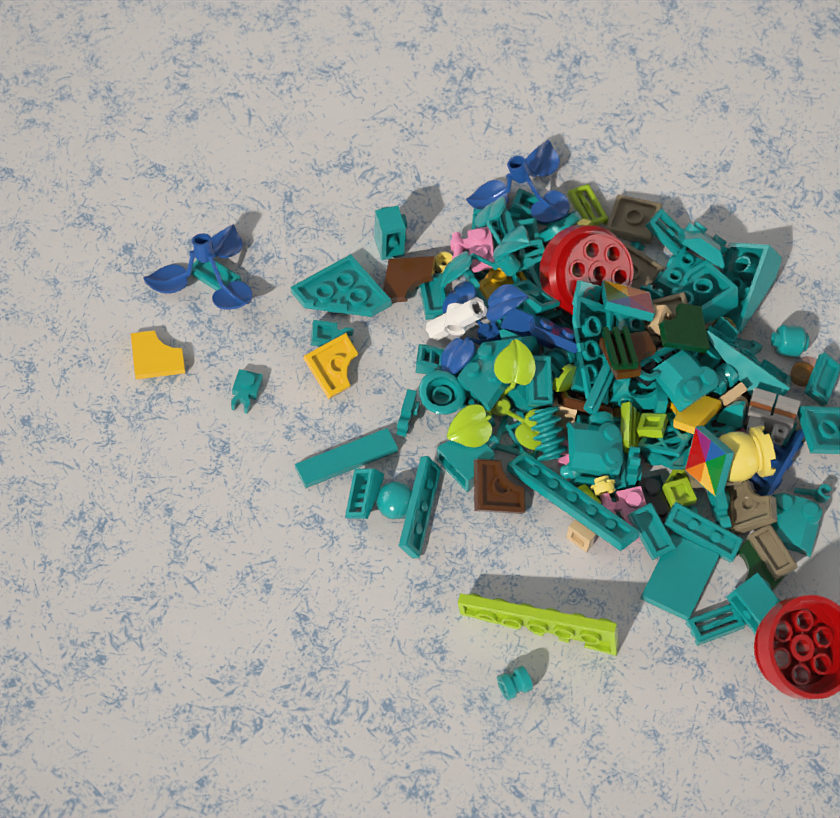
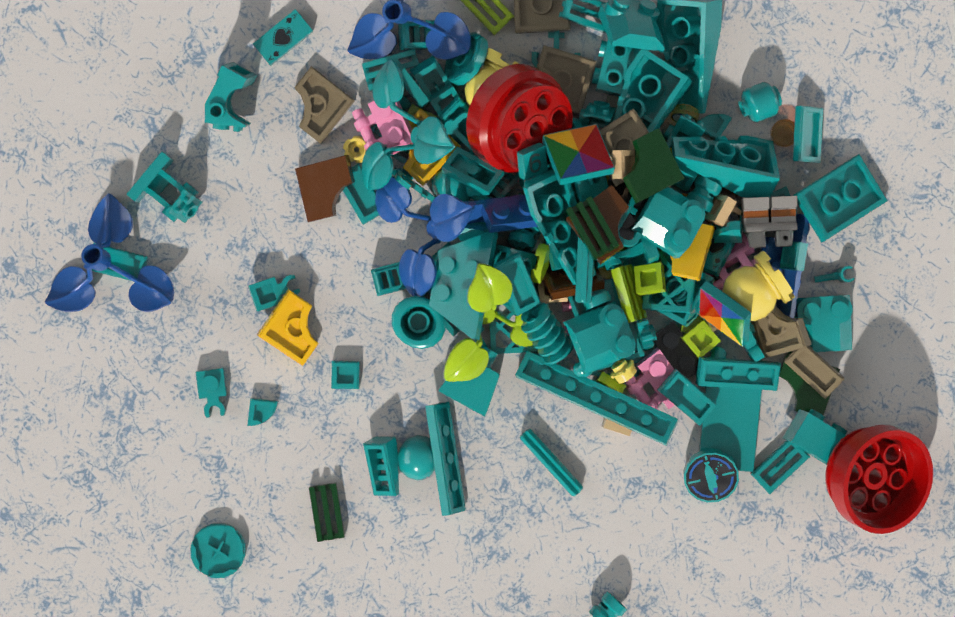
camera: 20 degrees left, 30 degrees up
(153, 357) = (99, 391): yellow tile -> none
(190, 511) = (218, 550): none -> teal tile
(273, 227) = (154, 182): none -> teal tile
(278, 419) = (261, 411): none -> teal tile
(302, 496) = (330, 535): none -> dark green tile
(342, 289) = (262, 231): teal plate -> none
(346, 458) = (348, 428): teal tile -> none
(362, 418) = (345, 375): none -> teal tile
(364, 179) = (230, 79): none -> teal tile
(390, 232) = (285, 142): teal brick -> none
(409, 408) = (391, 347): teal plate -> none
(419, 173) = (283, 37): none -> teal tile
(430, 226) = (323, 104): none -> dark tan tile
(456, 319) = (401, 235): white piece -> none
(494, 490) = (514, 413): reddish brown tile -> none
(511, 546) = (551, 462): none -> teal axle
(596, 633) = (675, 533): lime wing -> none
(650, 604) = (711, 475): none -> tile
(784, 454) = (794, 256): none -> teal tile

